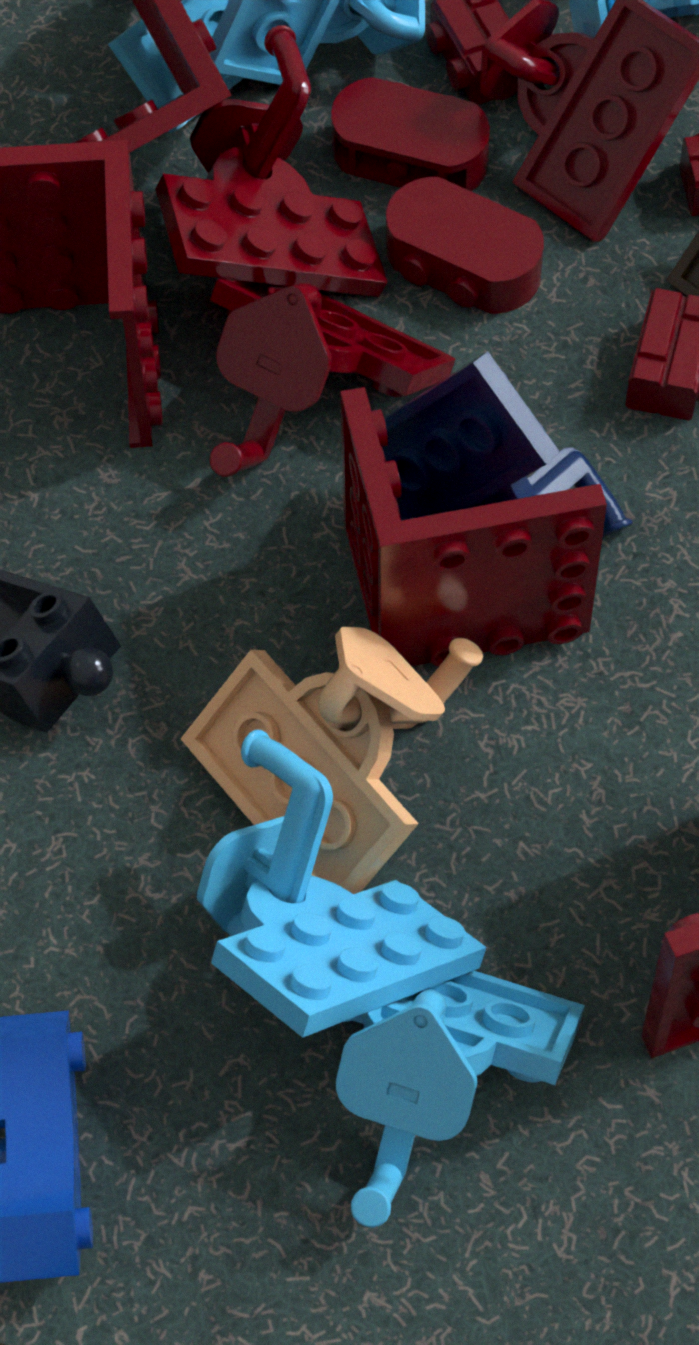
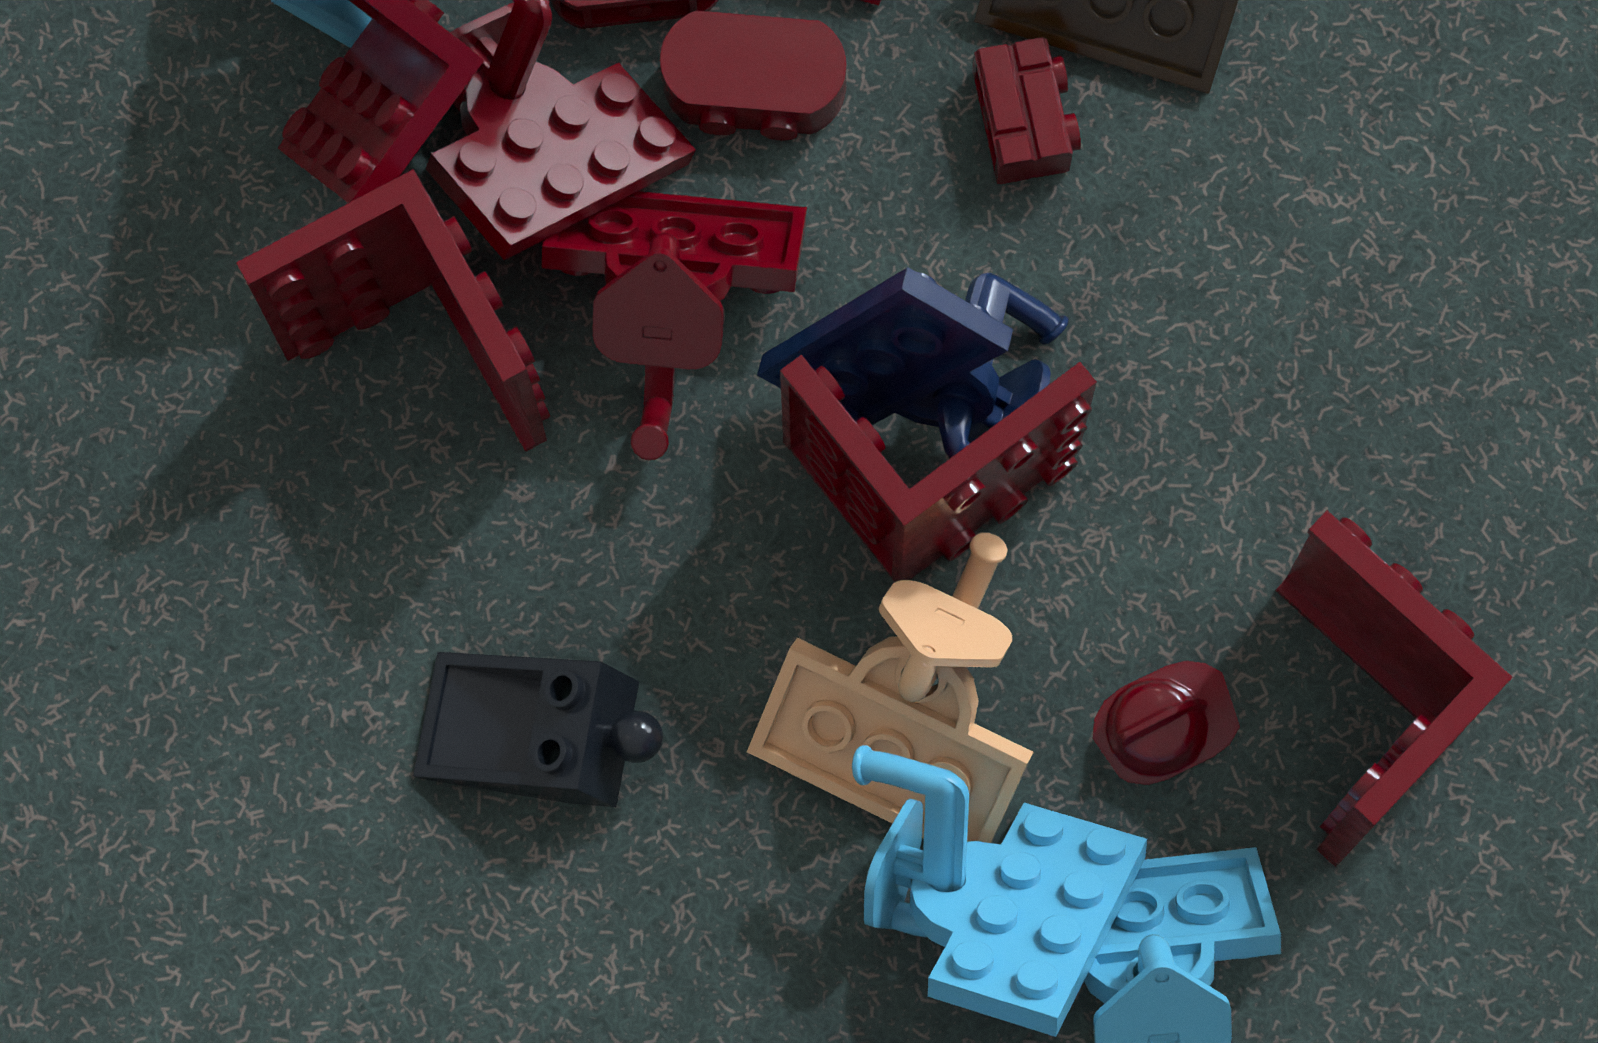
camera: 25 degrees left, 15 degrees up
(557, 872) = (1166, 722): none -> dark red piece

